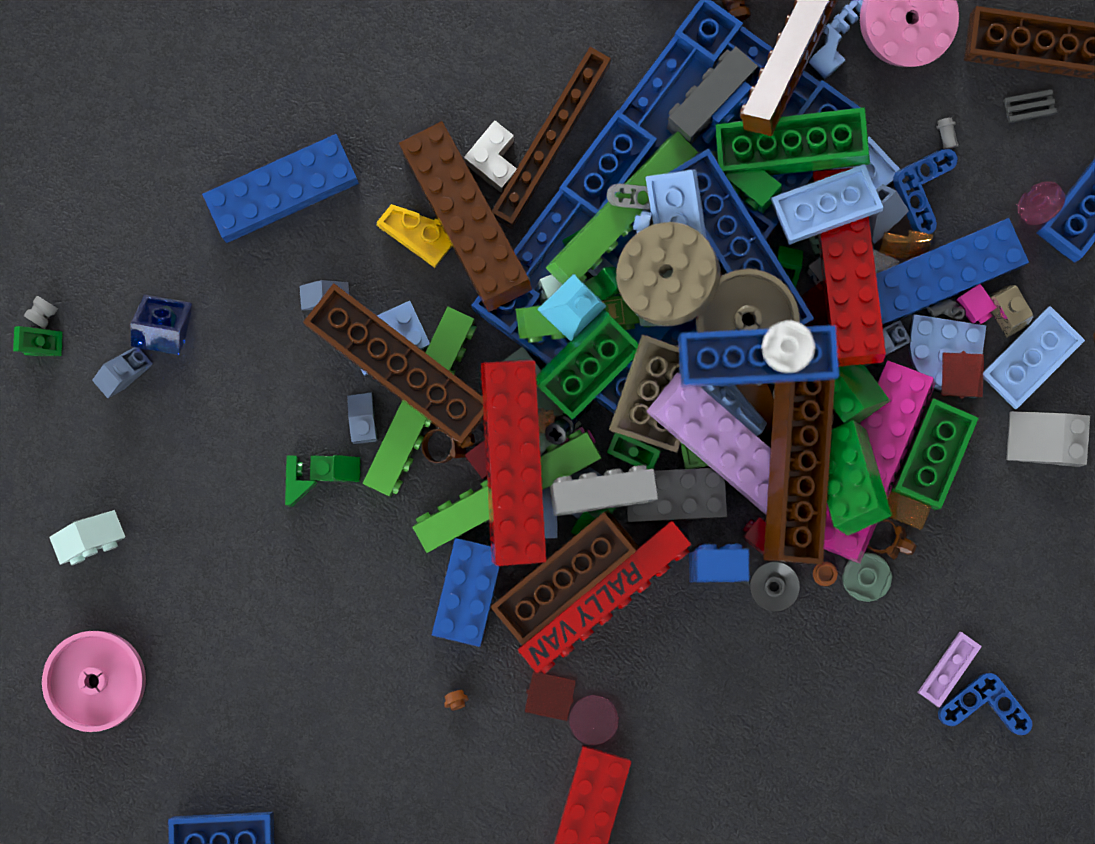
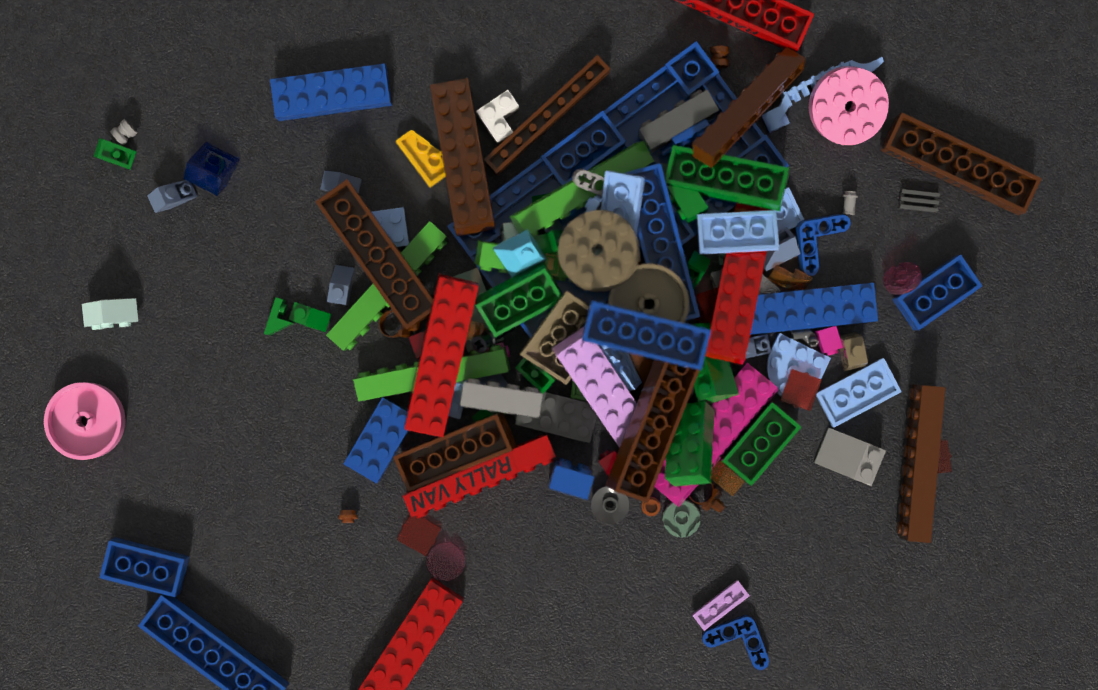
camera: 20 degrees right, 5 degrees up
(788, 346) = (670, 336): white tile -> none

